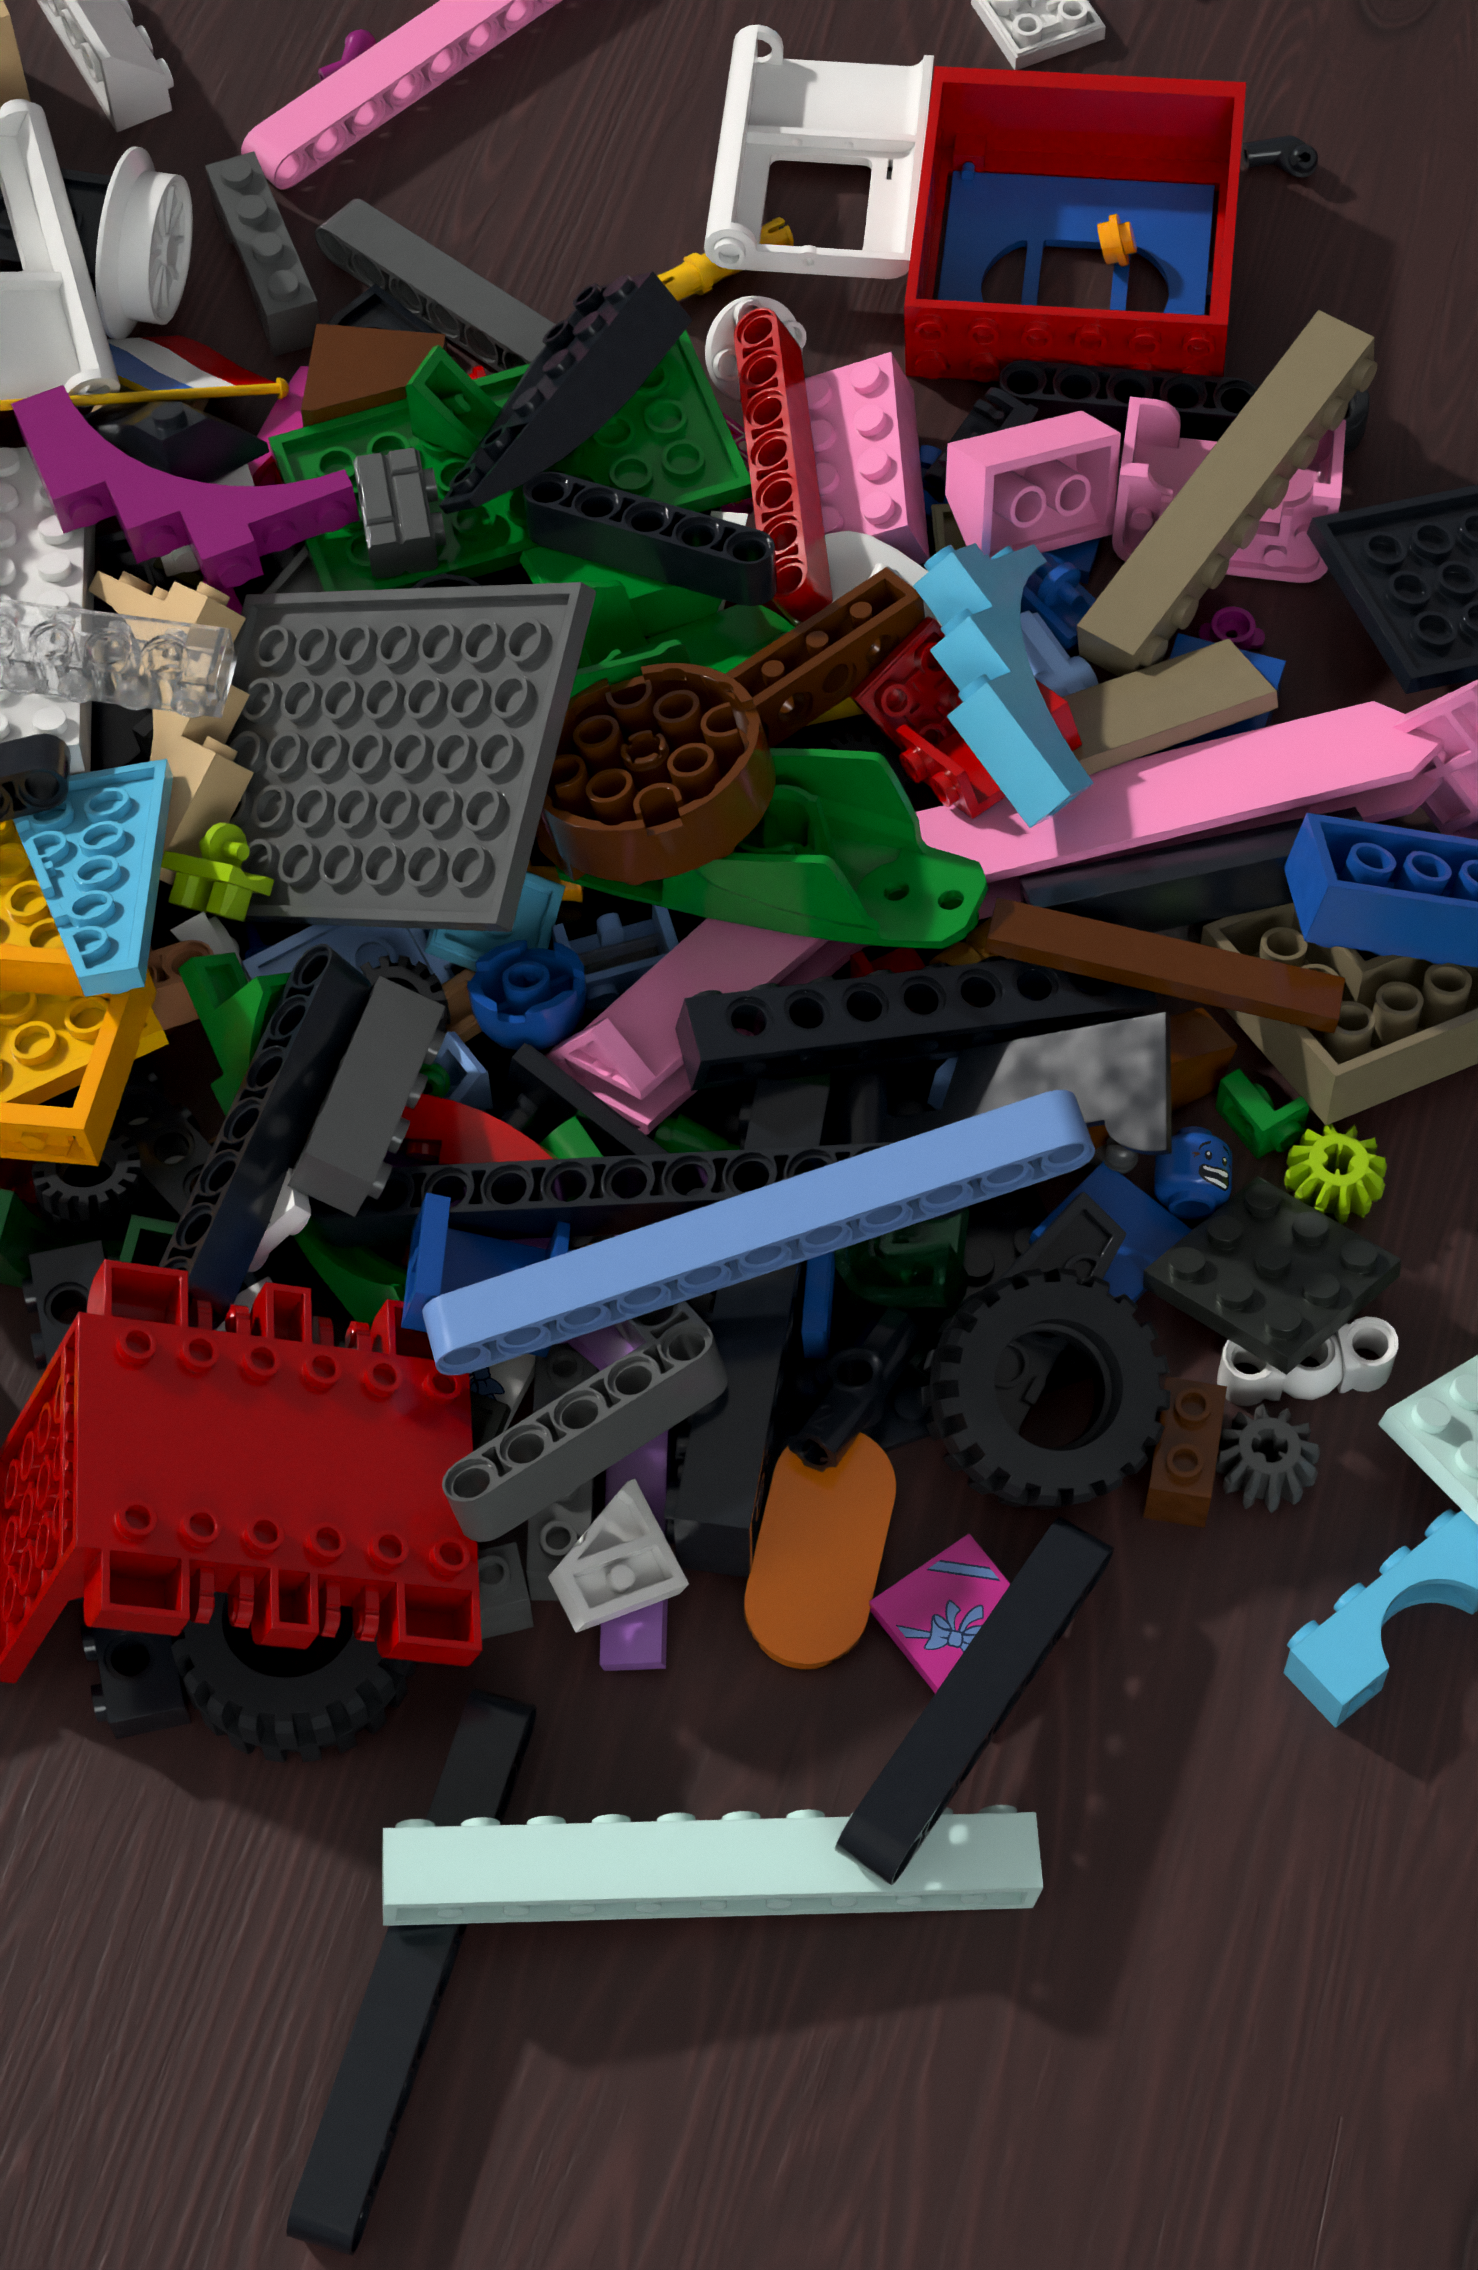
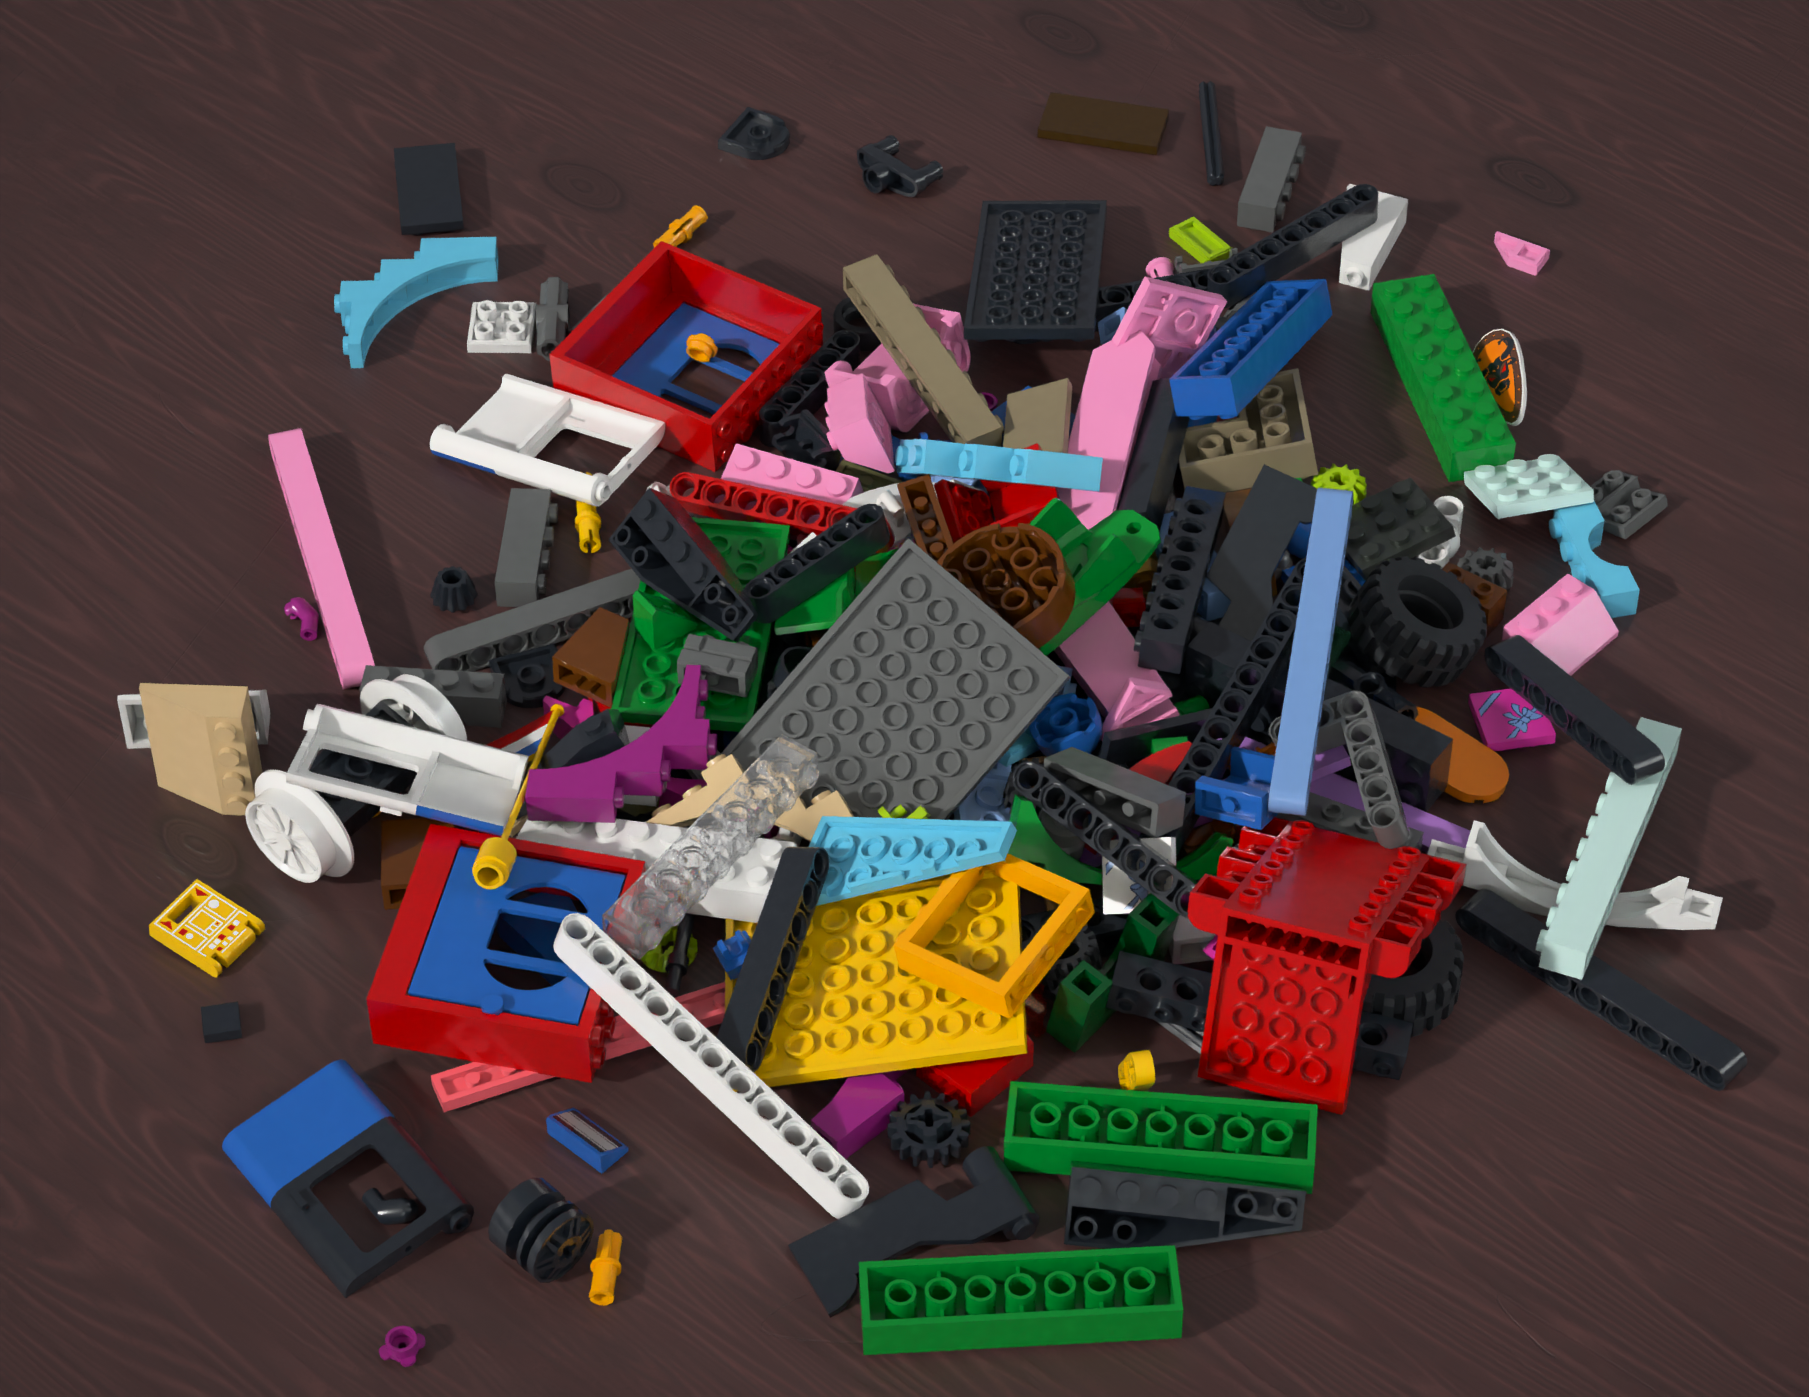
camera: 65 degrees left, 15 degrees down
(480, 188) = (453, 590): none -> black piece
(591, 1786) = (1658, 907): none -> white slope
(603, 225) = (525, 546): none -> dark grey brick
(617, 1564) = (1432, 819): white wing -> none
(1093, 50) = (552, 316): none -> dark grey piece
(1165, 965) = (1212, 474): reddish brown tile -> none
(1194, 1620) = (1565, 624): none -> bright pink slope
(1366, 117) = (681, 229): none -> light orange pin

